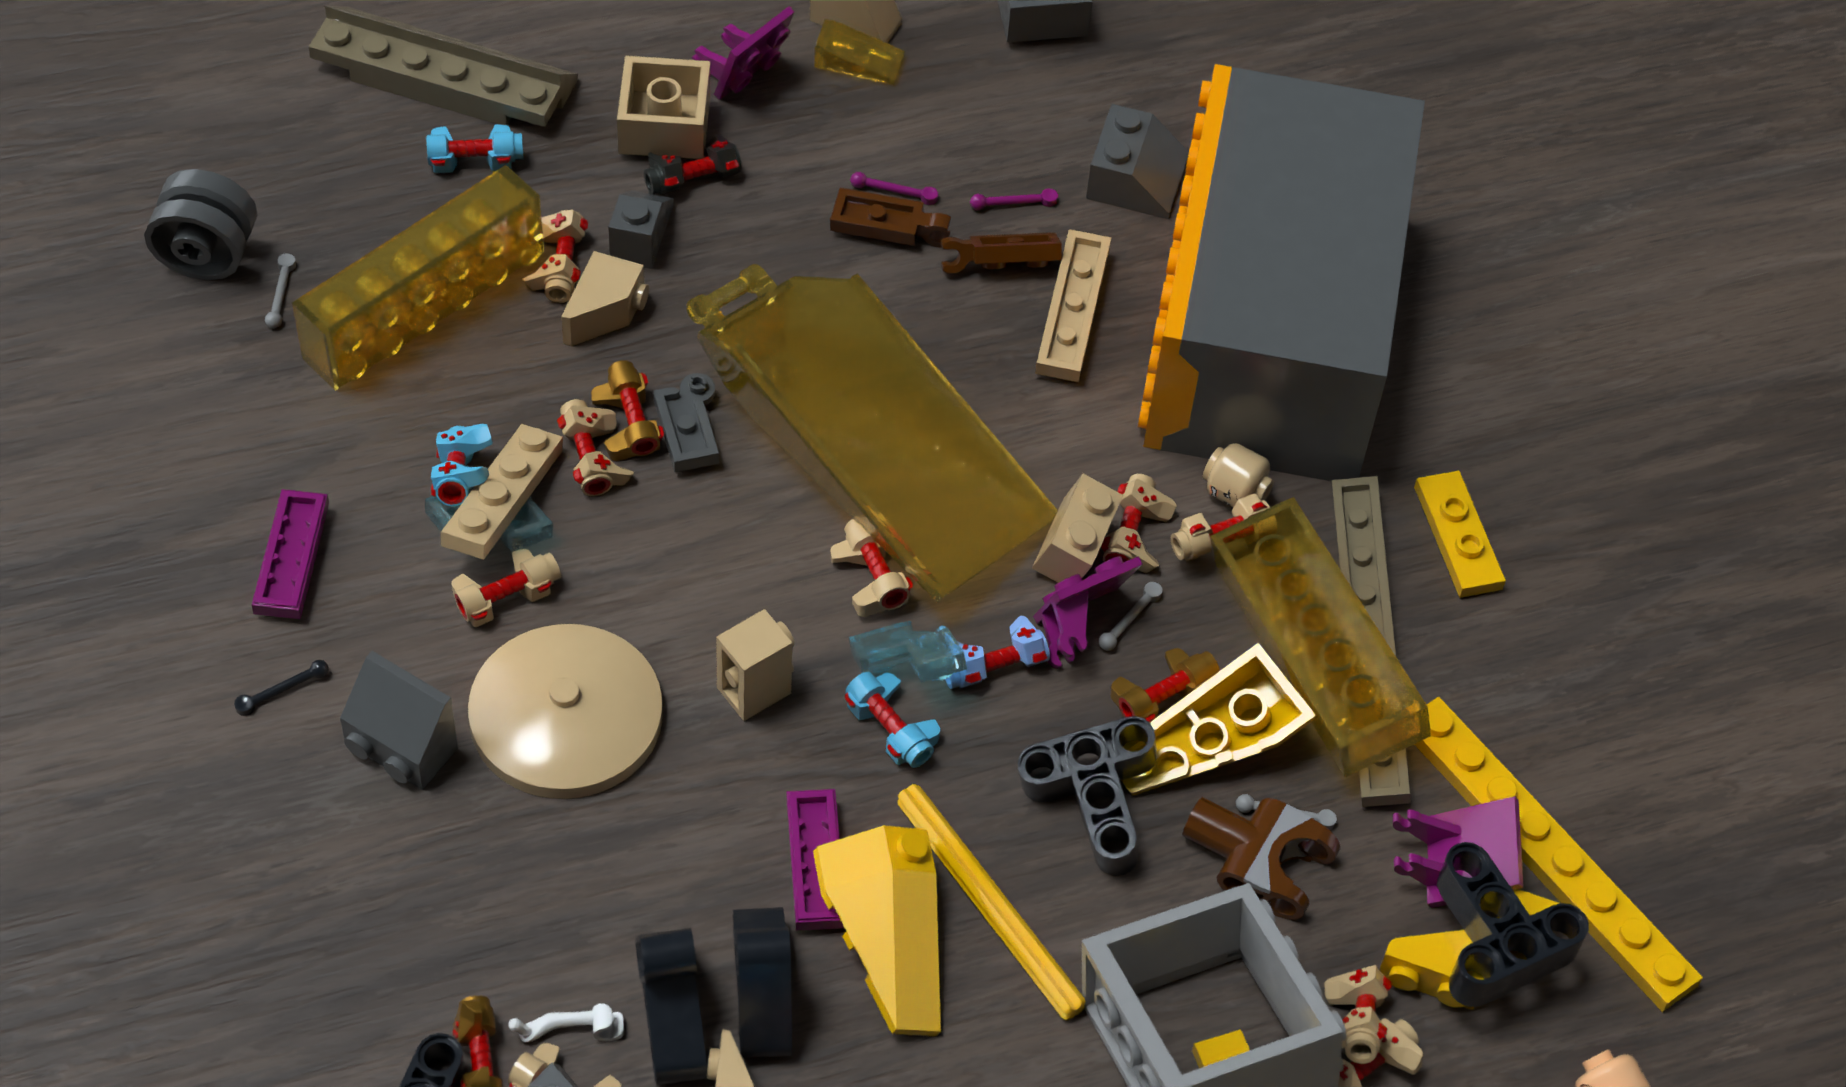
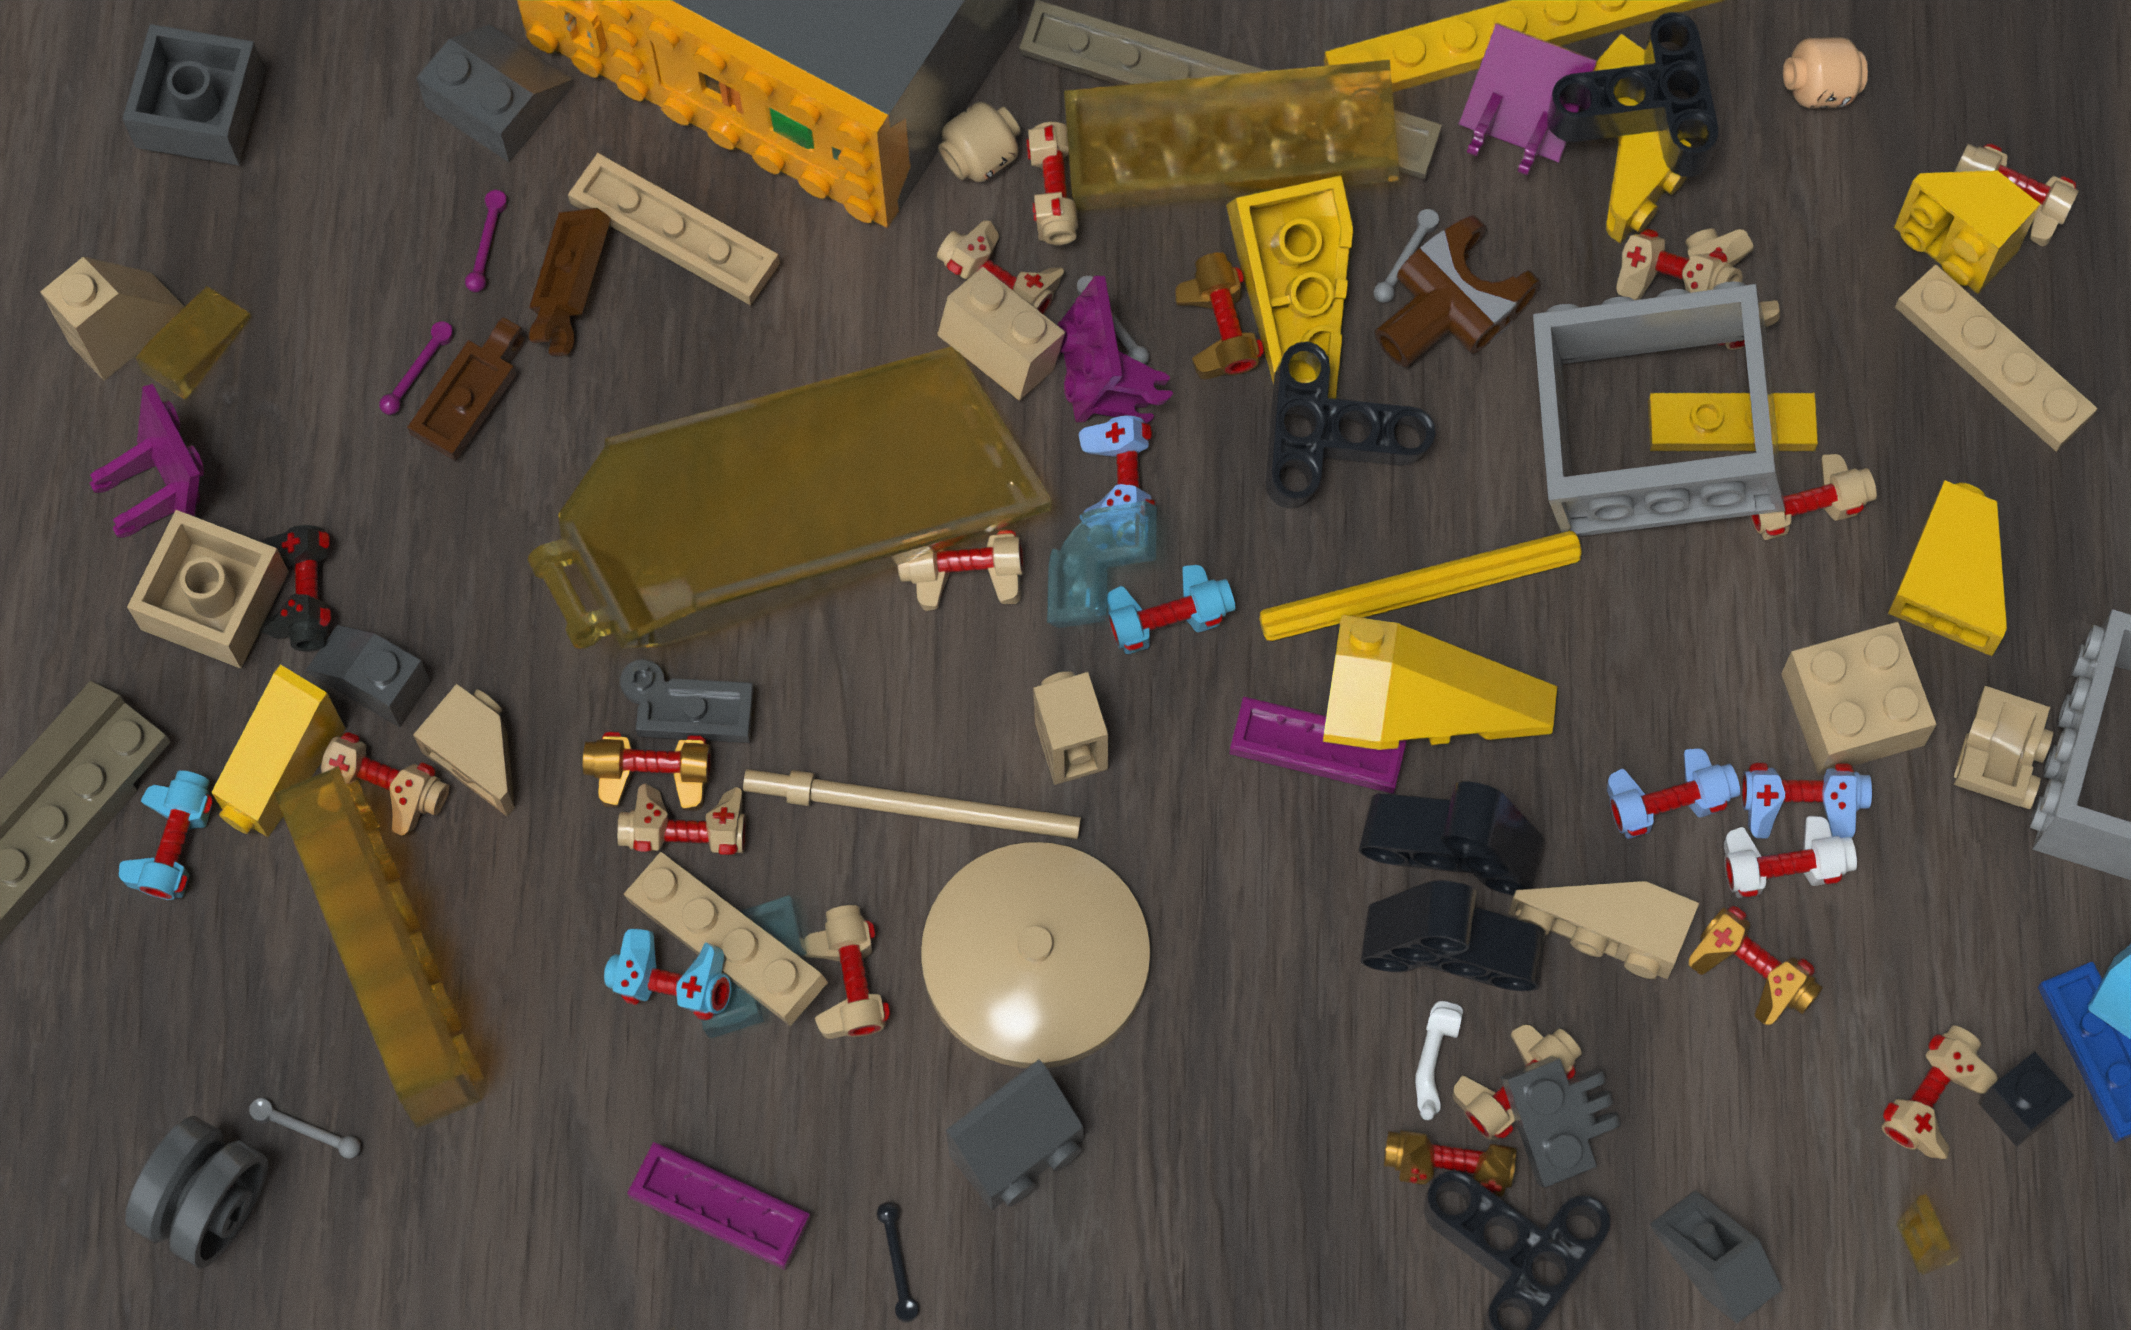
camera: 65 degrees left, 15 degrees up
(565, 176) = (276, 751): none -> yellow slope
(649, 518) = (803, 788): none -> tan bar

